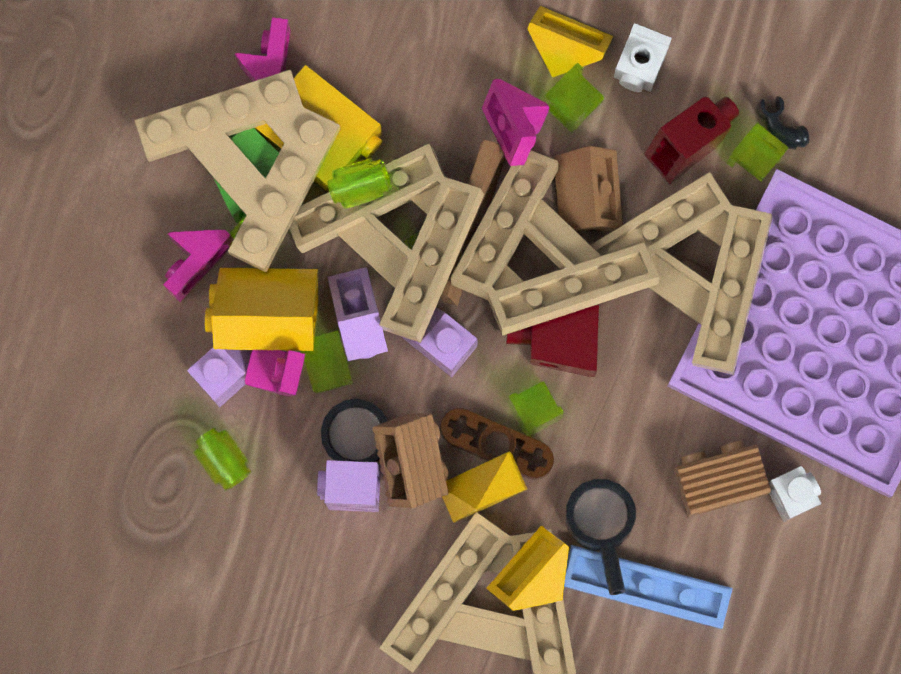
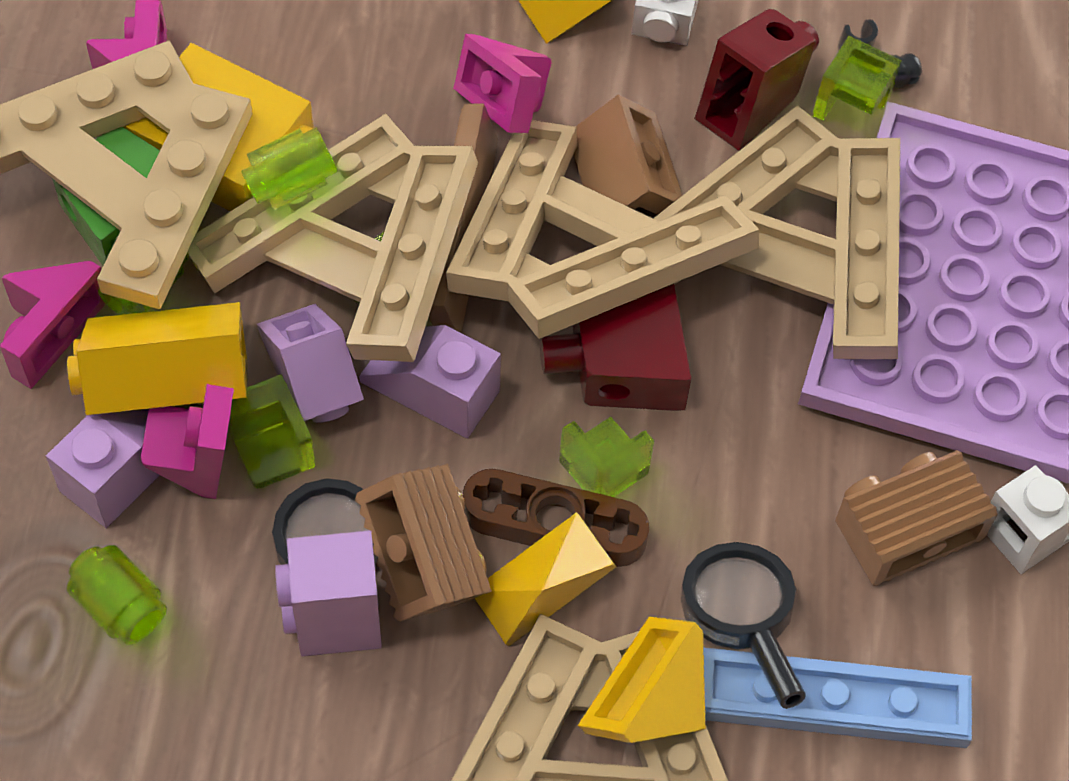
camera: 15 degrees left, 20 degrees down
(573, 98) = (579, 59): clear neon green panel -> none

